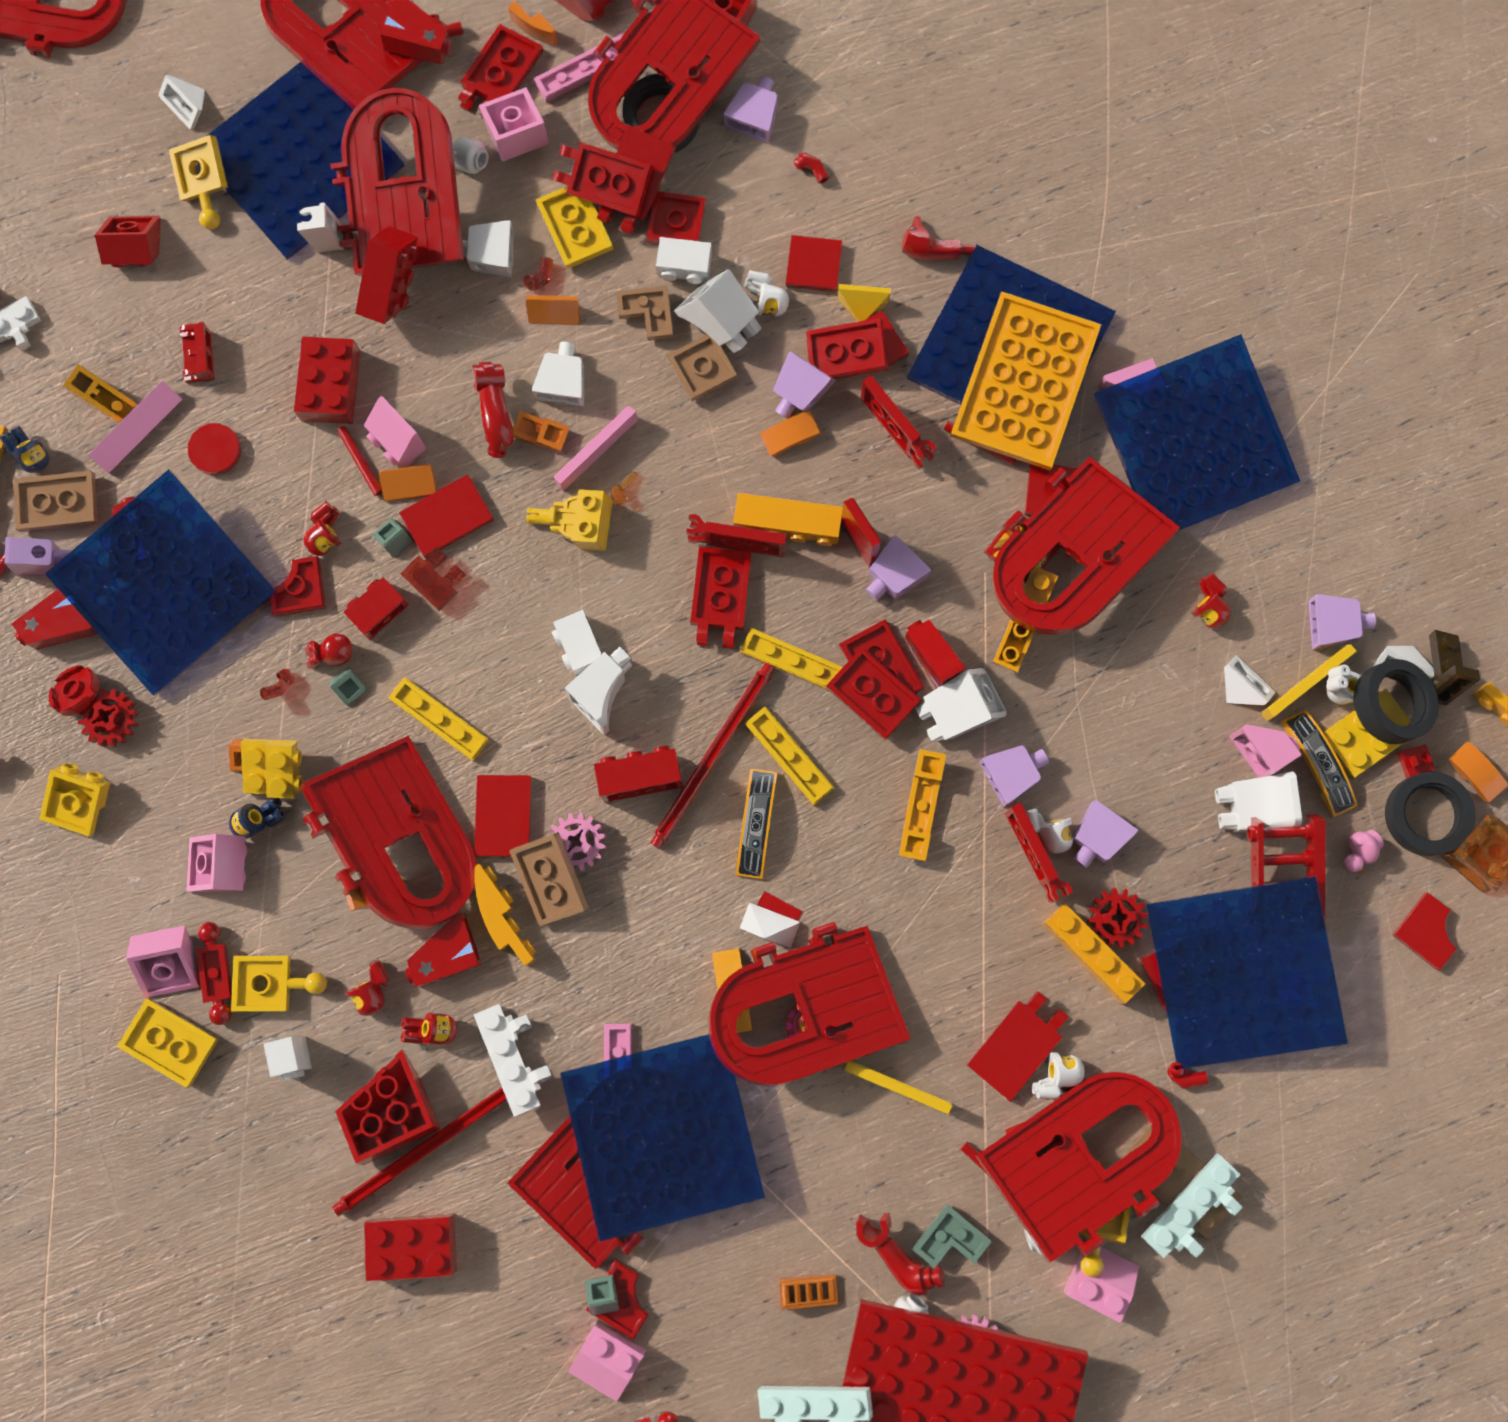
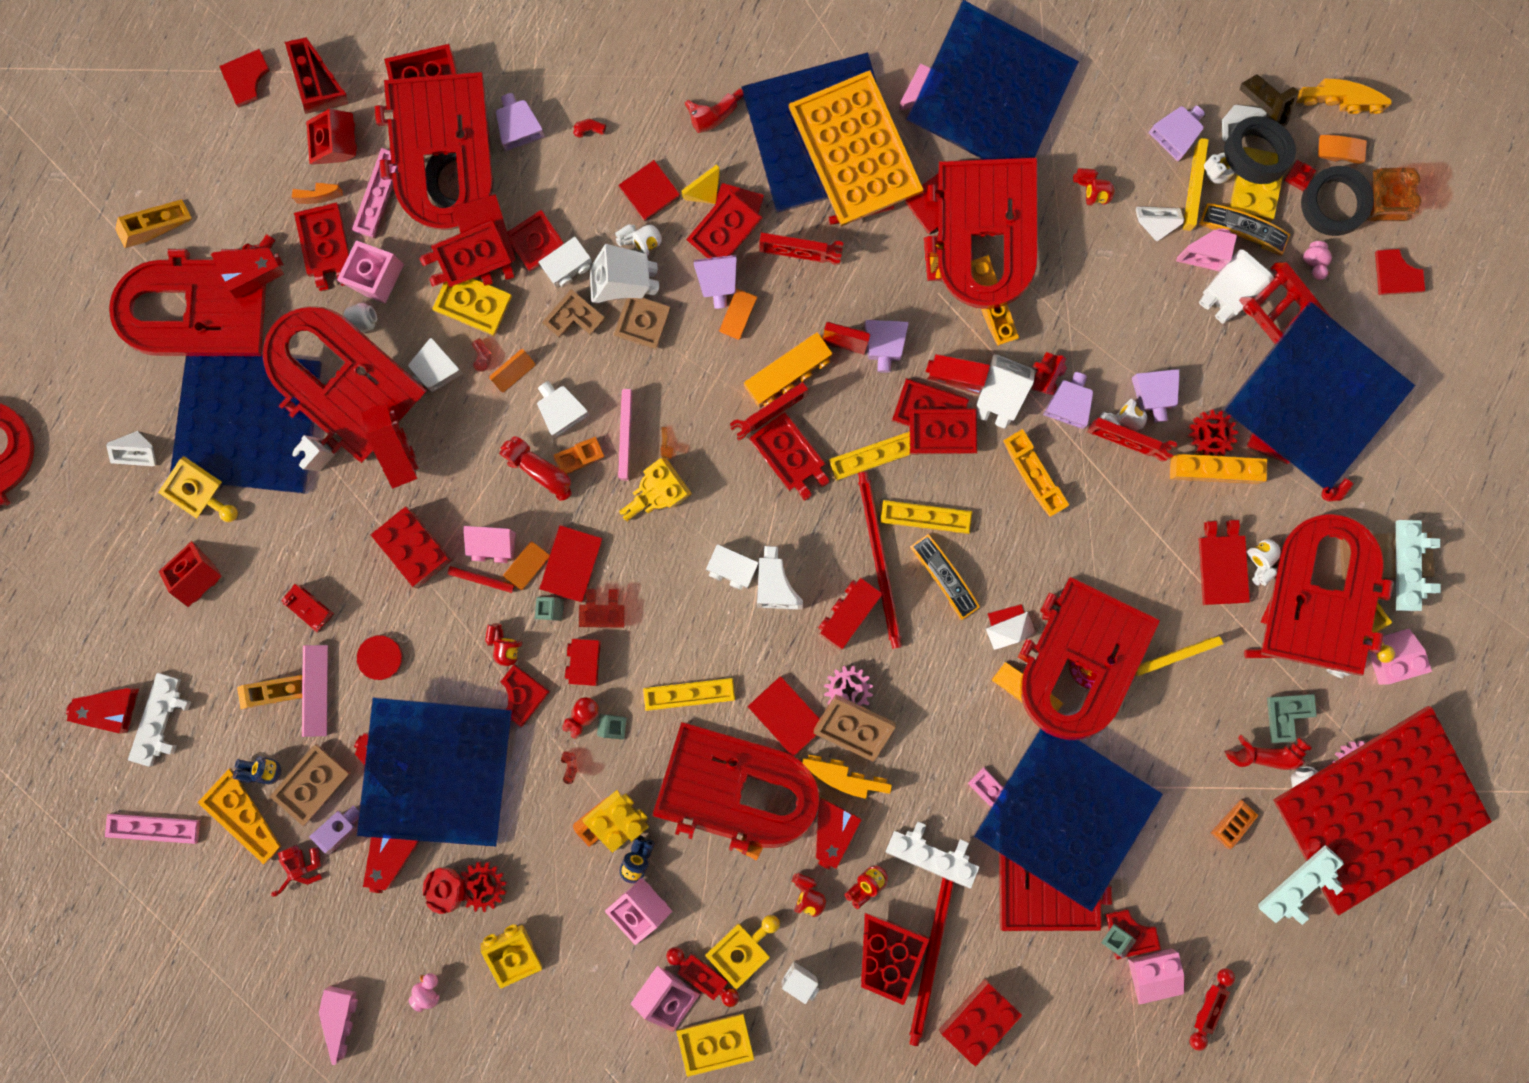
camera: 50 degrees left, 5 degrees up
(1014, 726) = (1048, 372): none -> red hips

